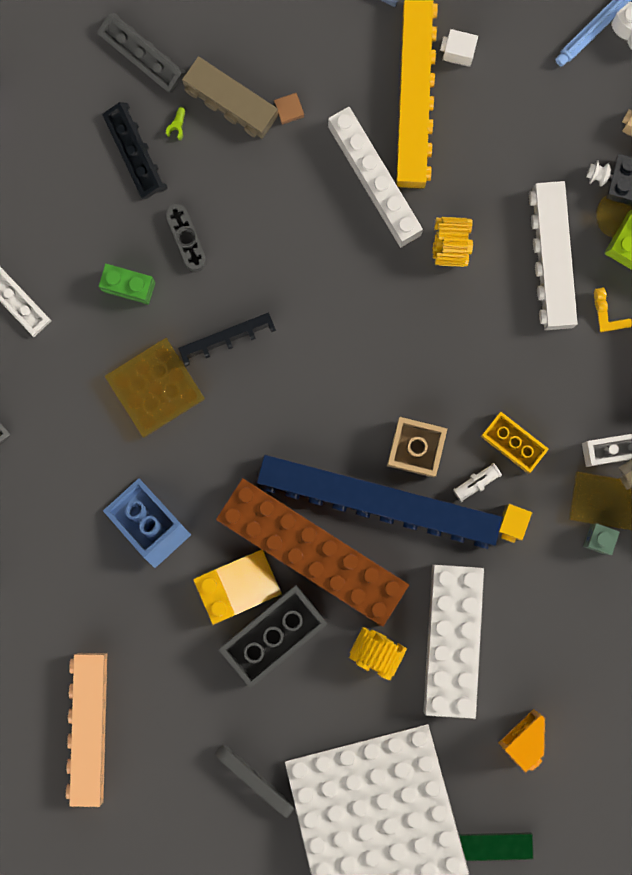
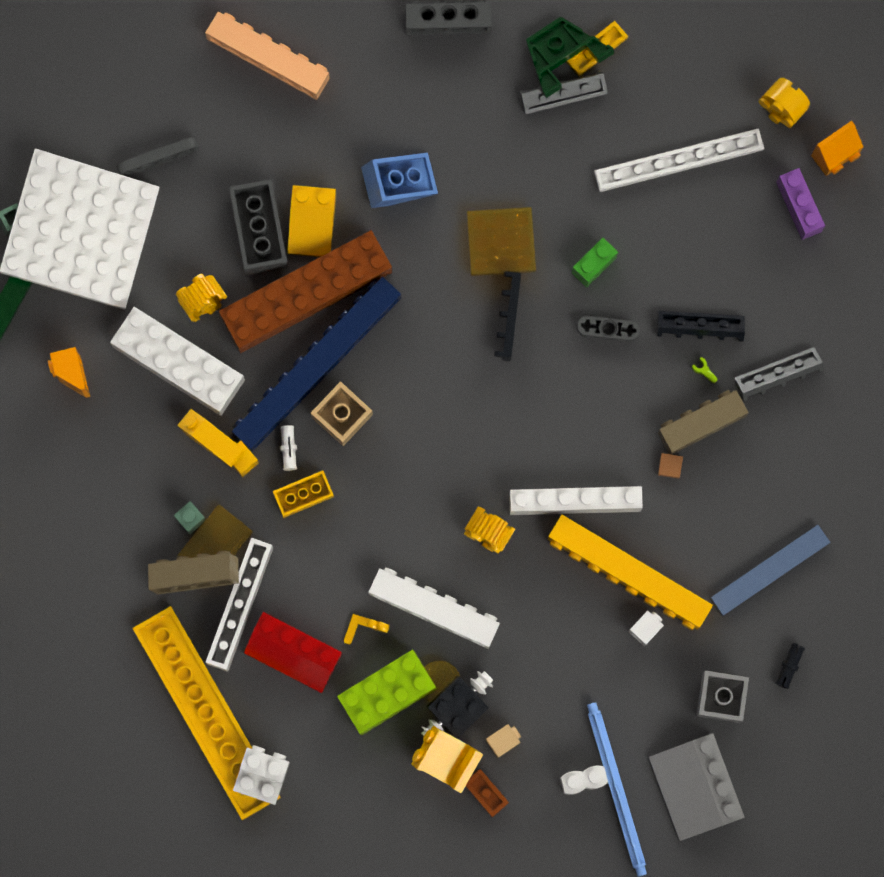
camera: 115 degrees right, 5 degrees down
(514, 562) = (210, 438): none -> yellow slope

